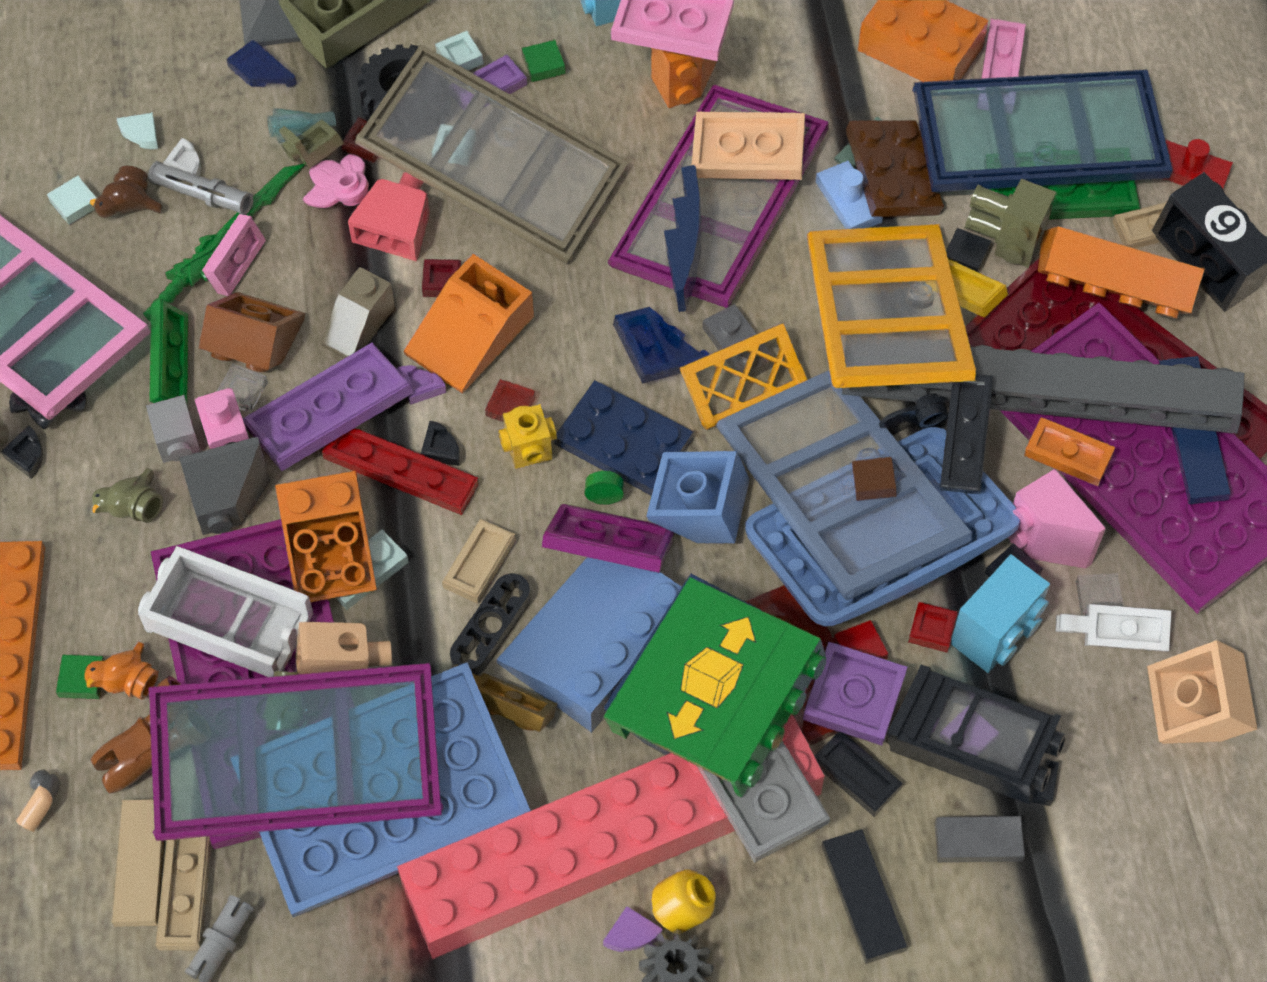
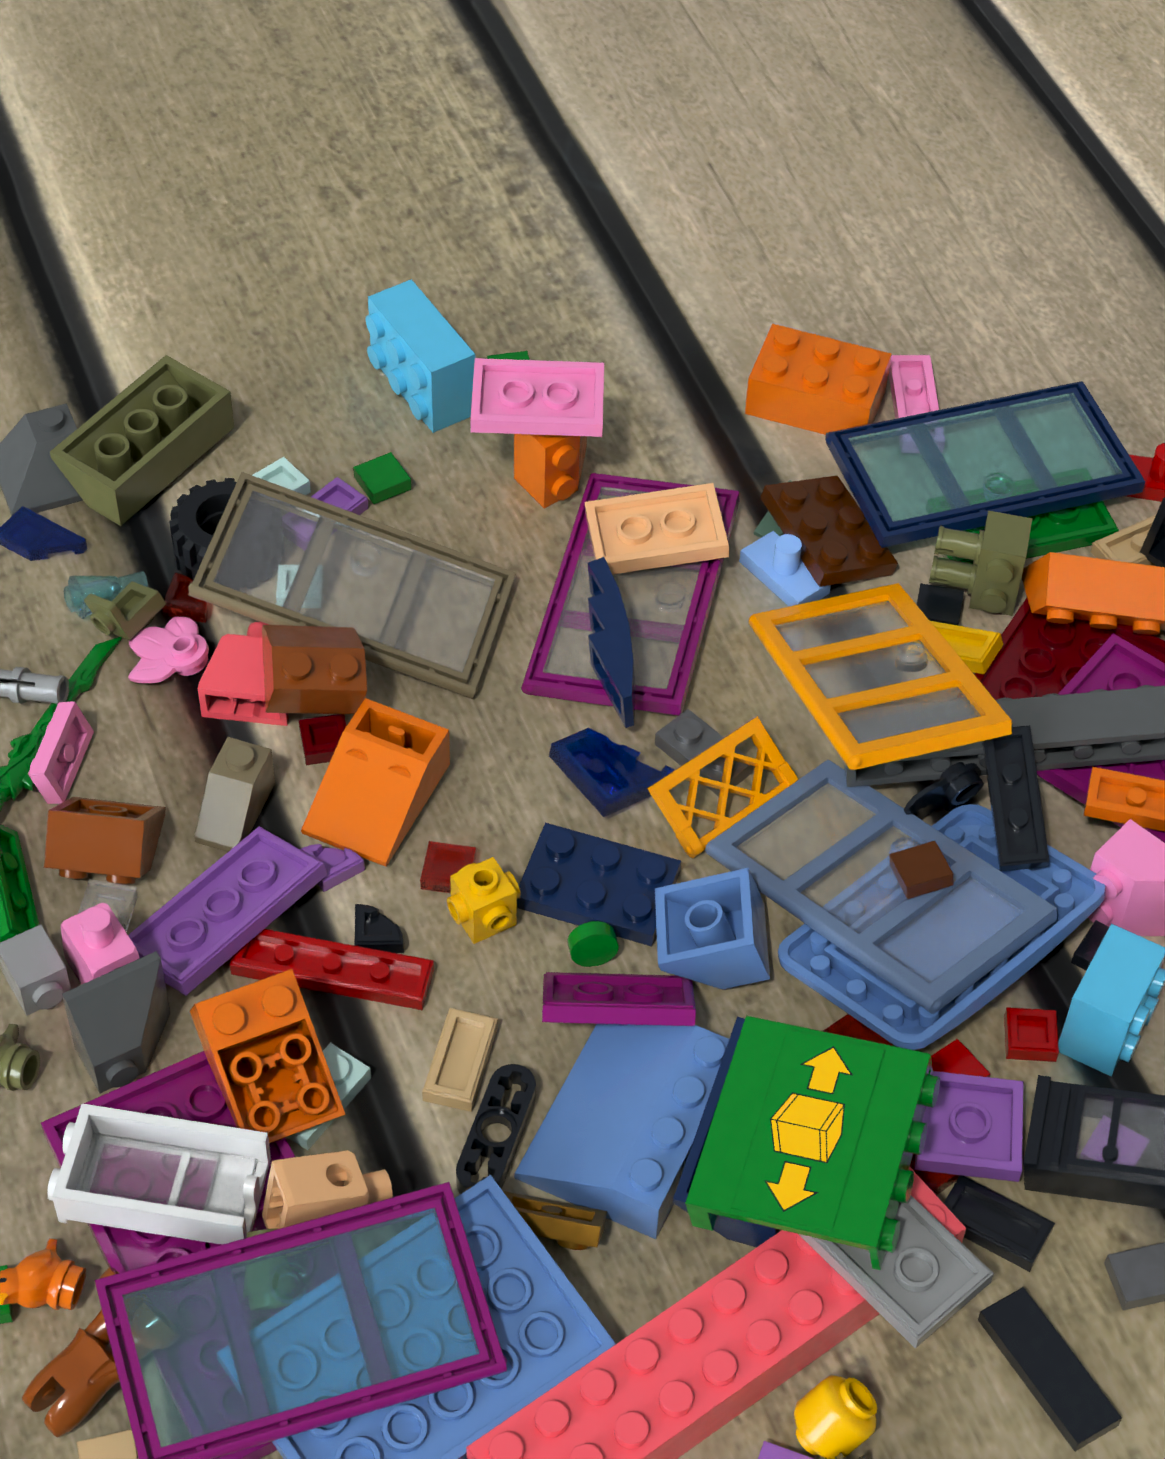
camera: 15 degrees left, 10 degrees down
(438, 221) = (313, 669): none -> dark orange slope

